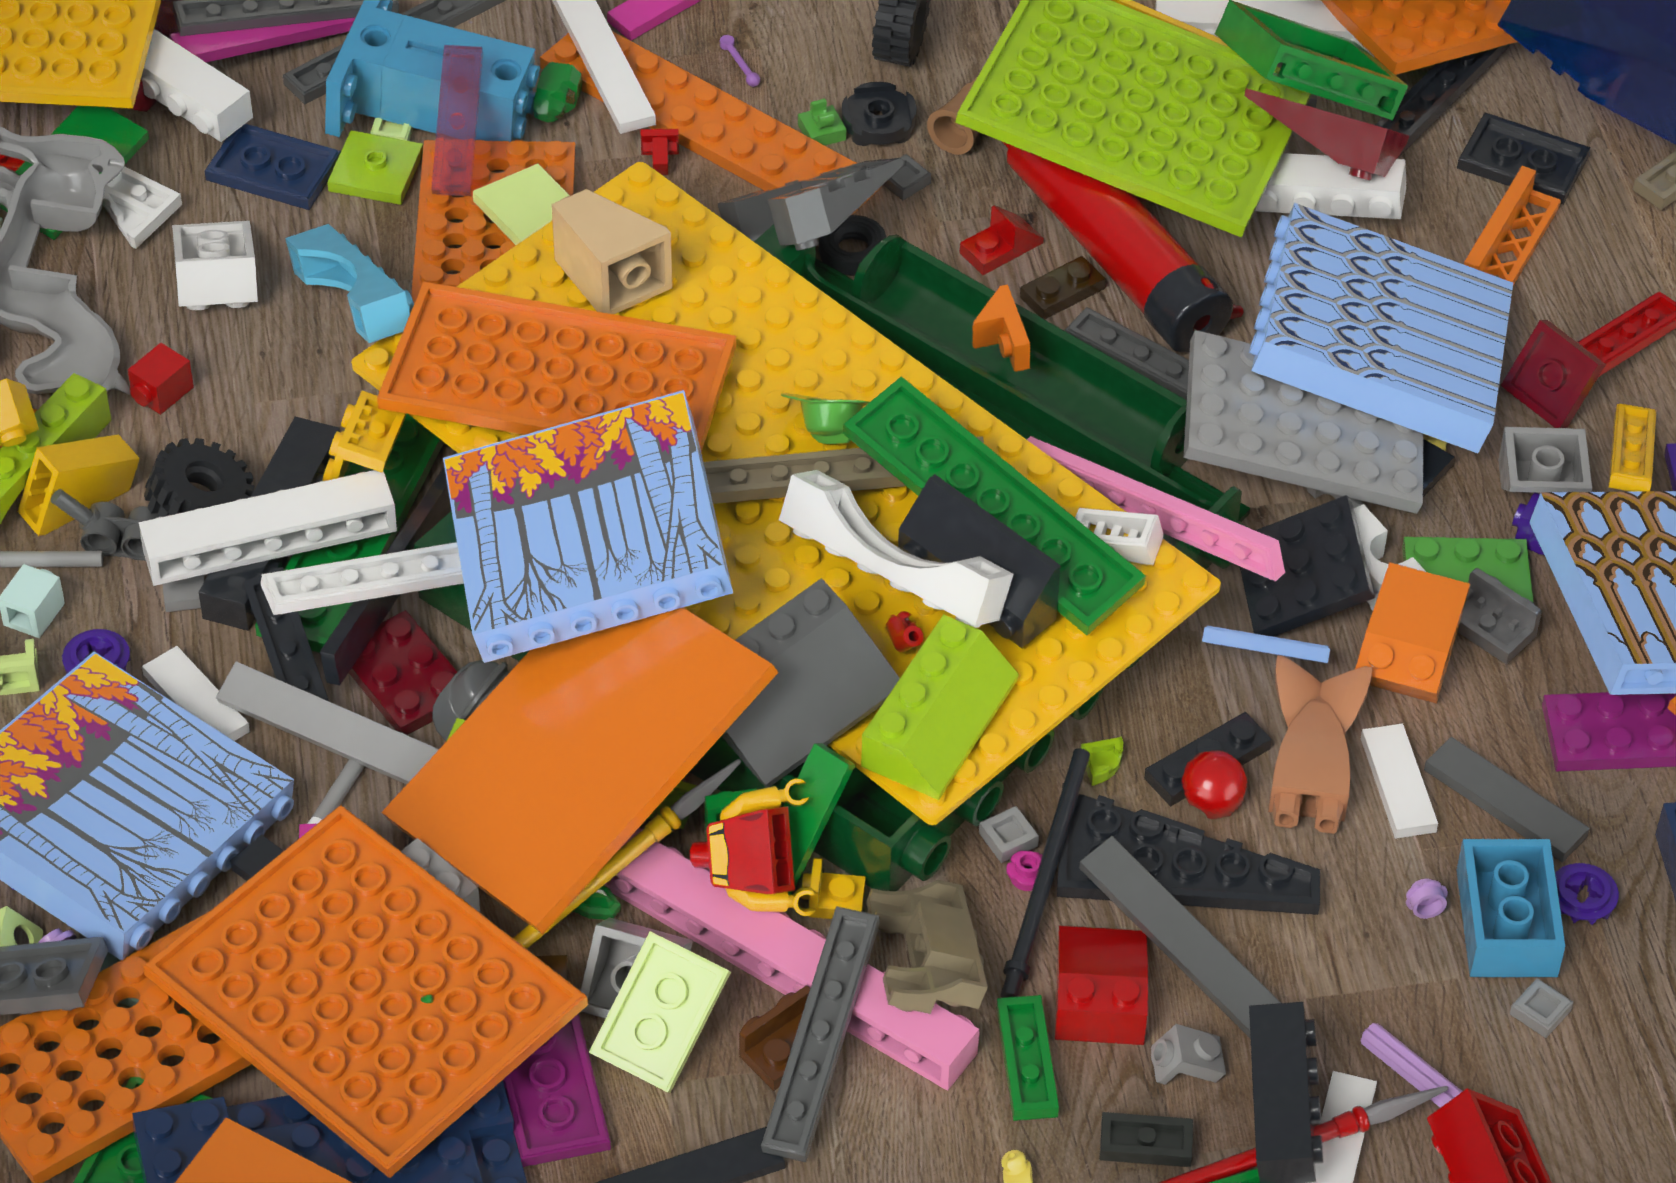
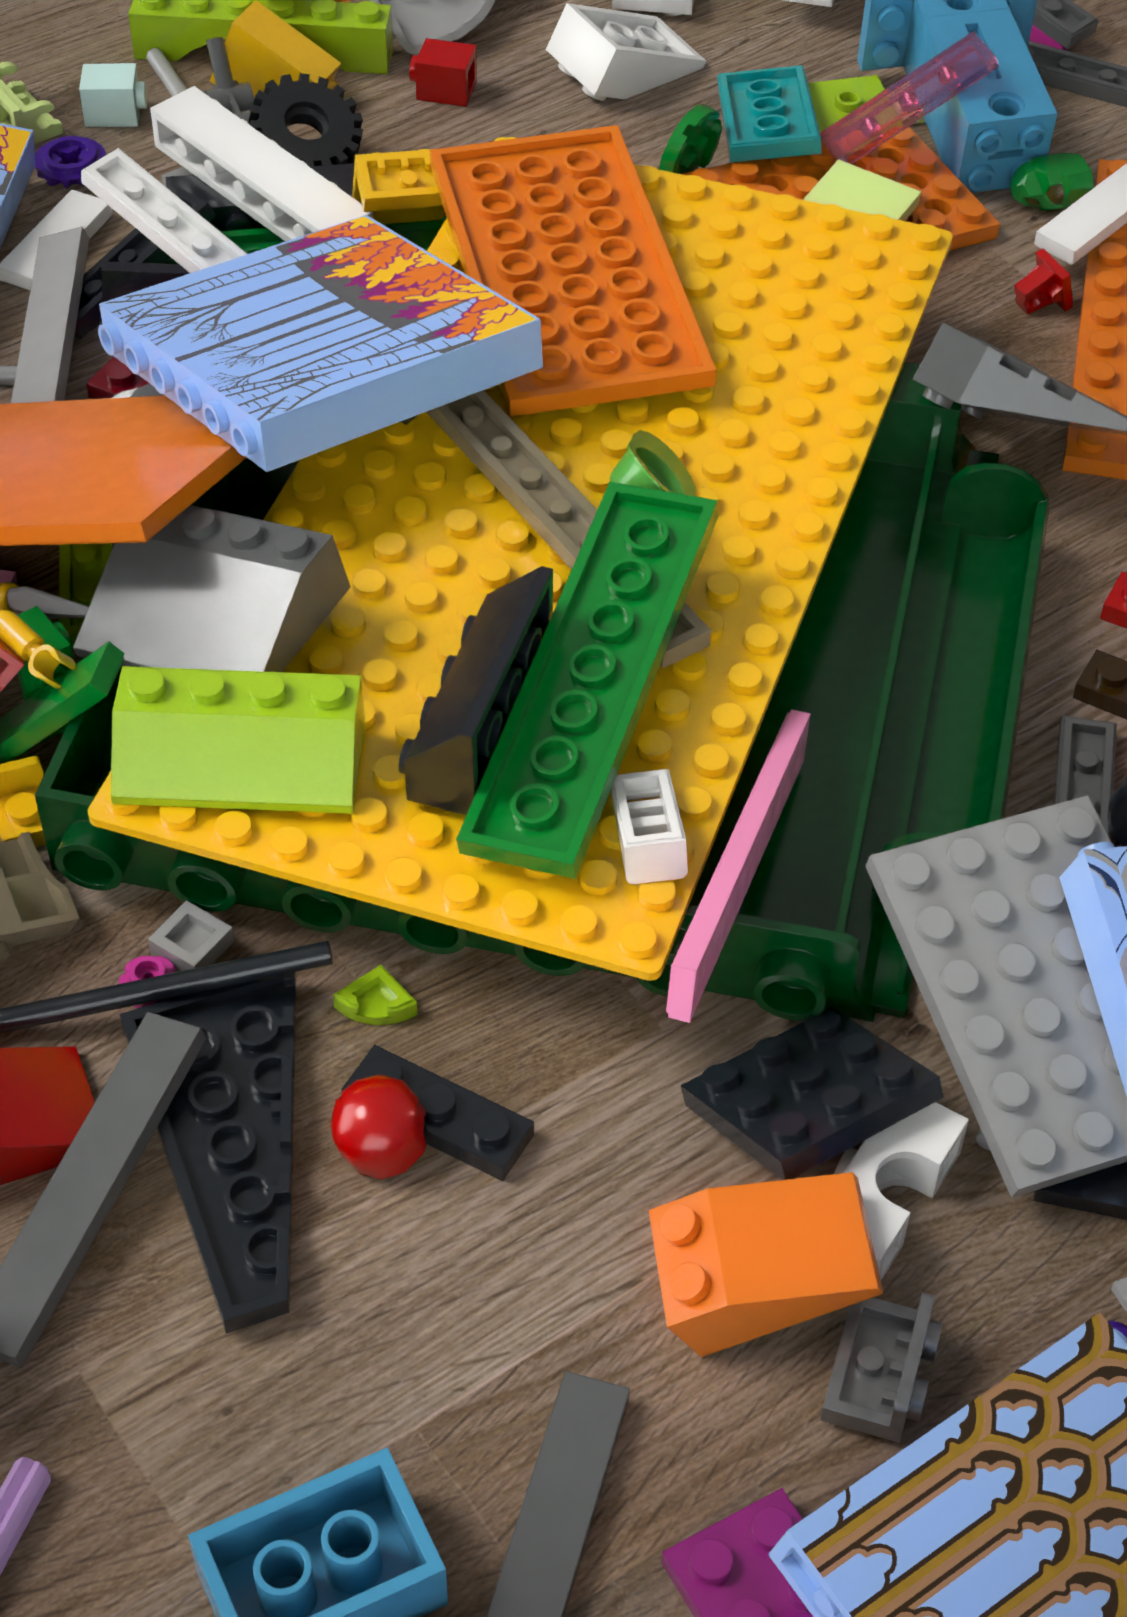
camera: 65 degrees right, 0 degrees up
(273, 166) = (792, 38): dark blue tile -> none
(374, 208) = (768, 114): none -> teal tile
(375, 300) = (639, 115): medium azure arch -> none
(383, 251) = (692, 141): none -> green tile
(610, 251) = (743, 224): tan slope -> none
(828, 513) = (422, 645): white arch -> none
(853, 227) = (1060, 469): black tyre -> none
(903, 632) = (357, 662): red arm -> none
(1002, 325) = (962, 622): orange slope -> none
(1266, 644) = (642, 1096): medium blue tile -> none
(1314, 757) = (481, 1221): nougat hips -> none
(1399, 781) = (518, 1353): white tile -> none
(1427, 898) = (309, 1455): lavender plate -> none
(1460, 556) = (983, 1306): bright green wing -> none

